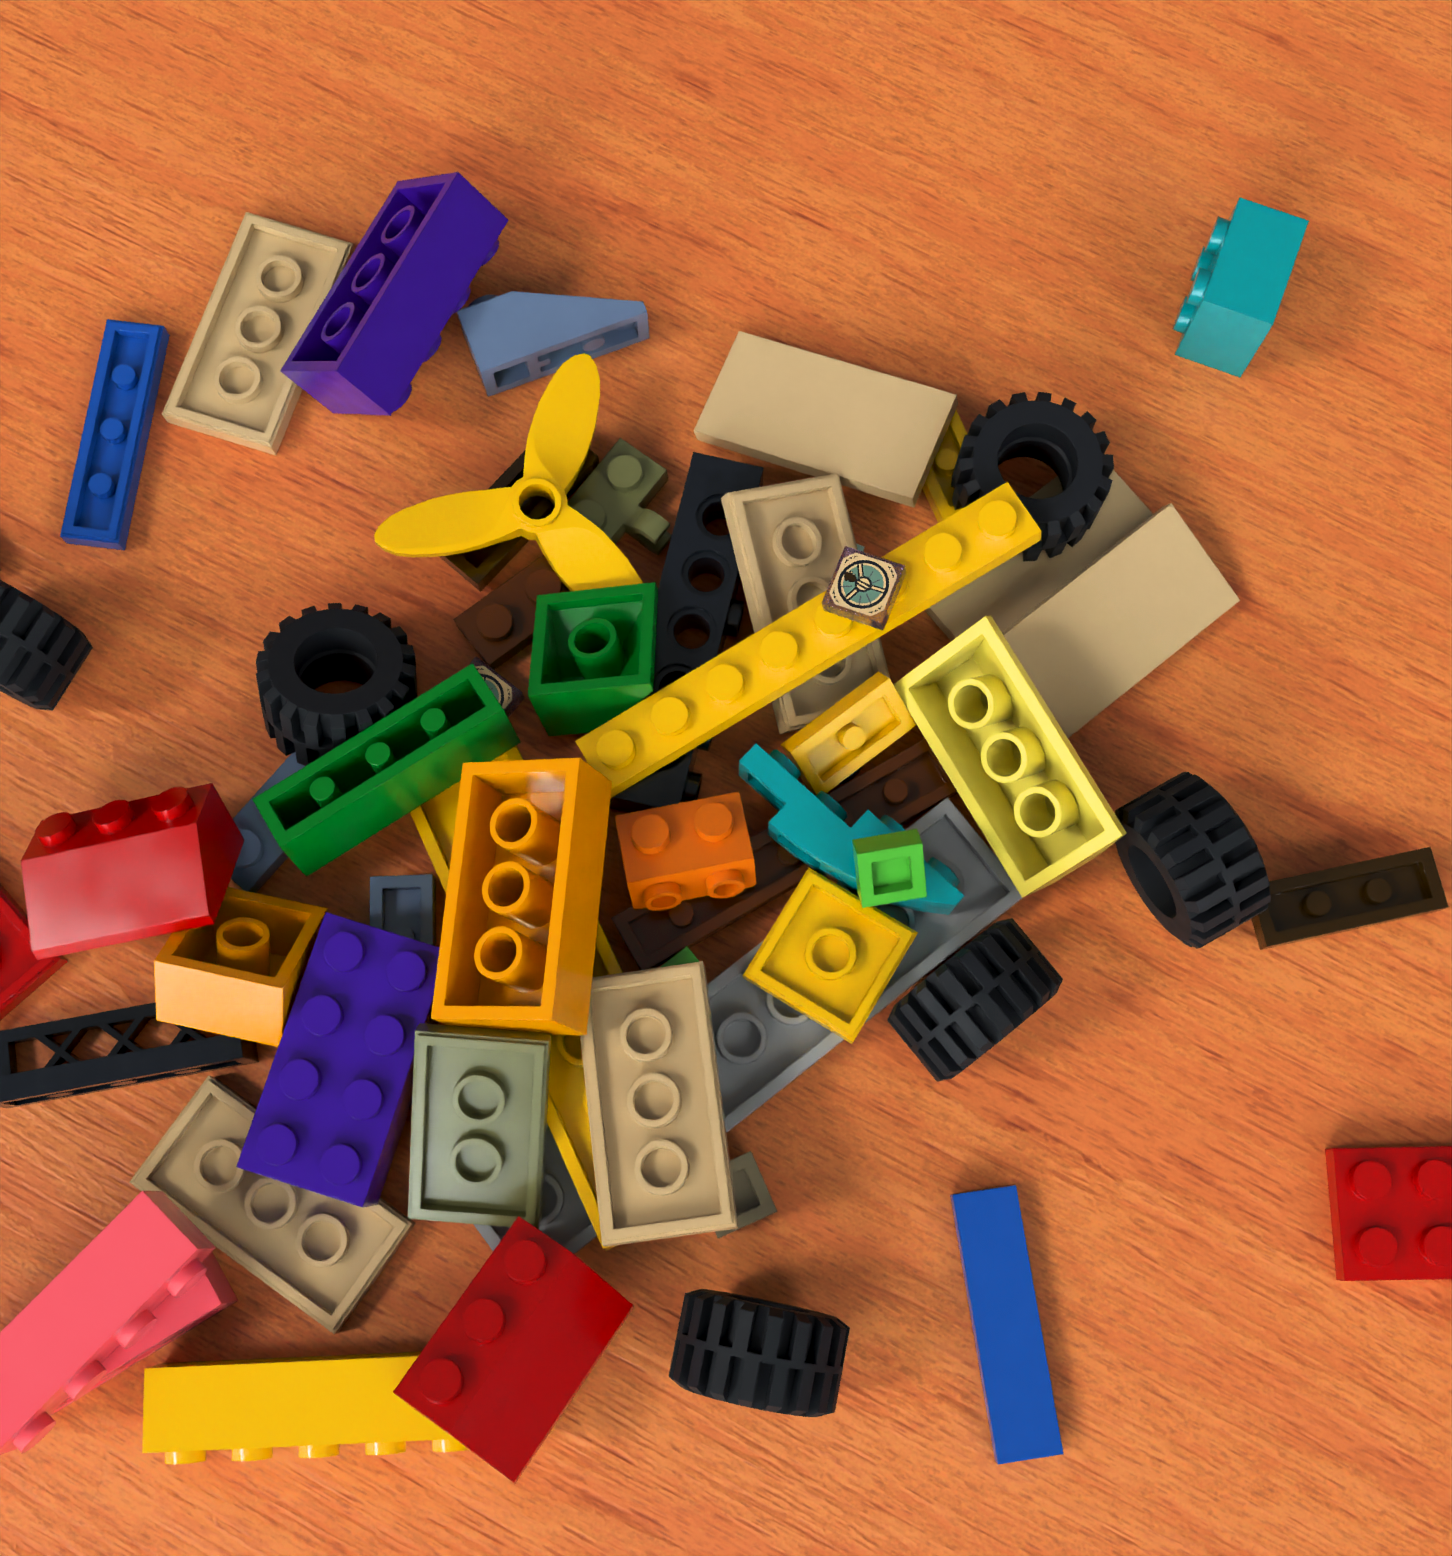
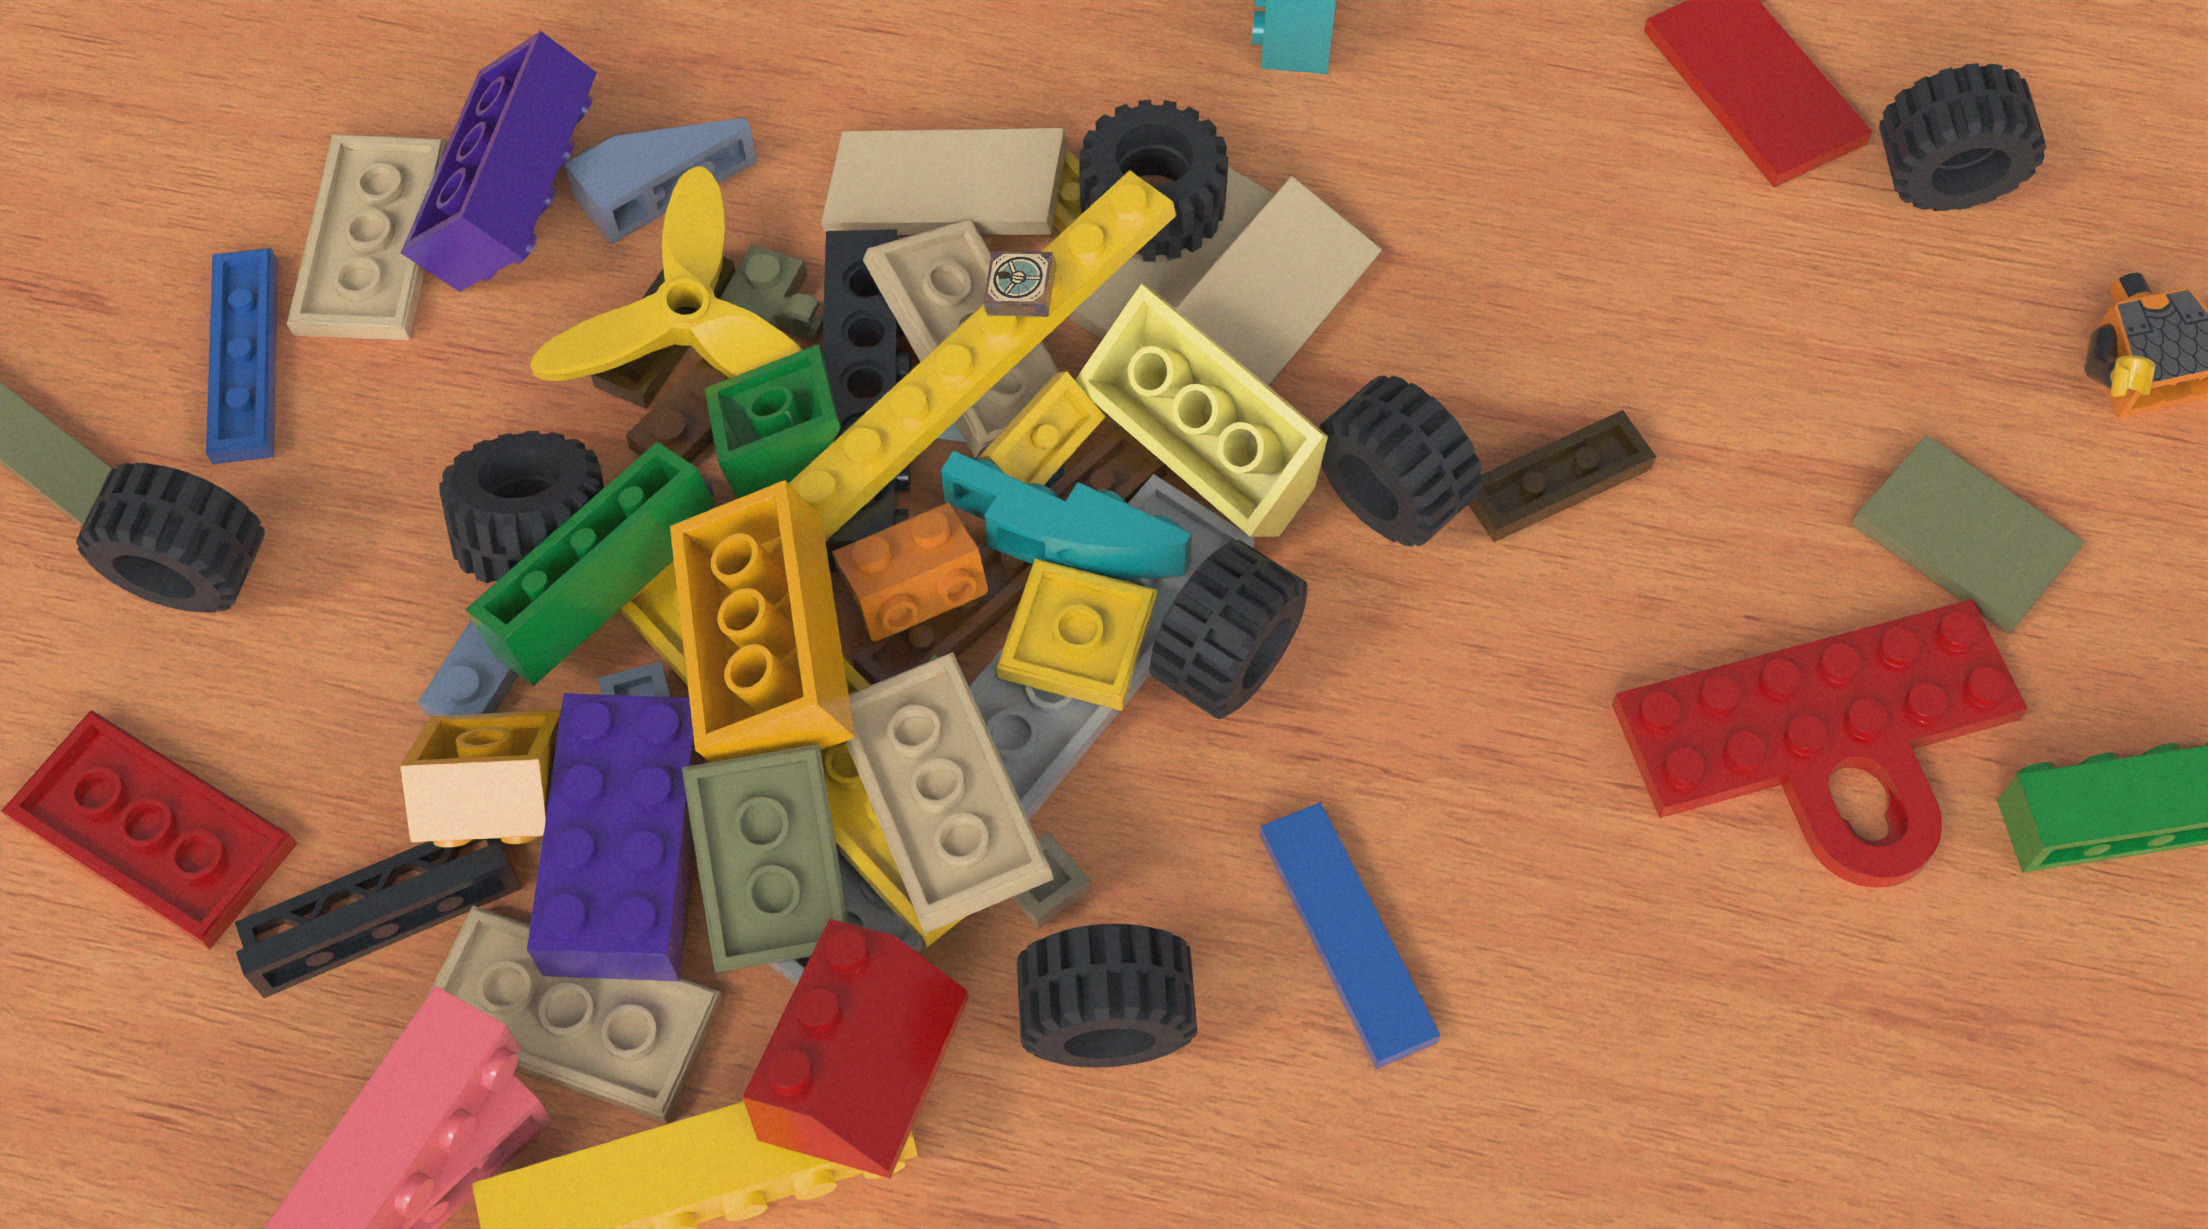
camera: 15 degrees left, 15 degrees down
(128, 870) = (348, 711): slope -> none
(889, 868) = (1111, 516): bright green plate -> none

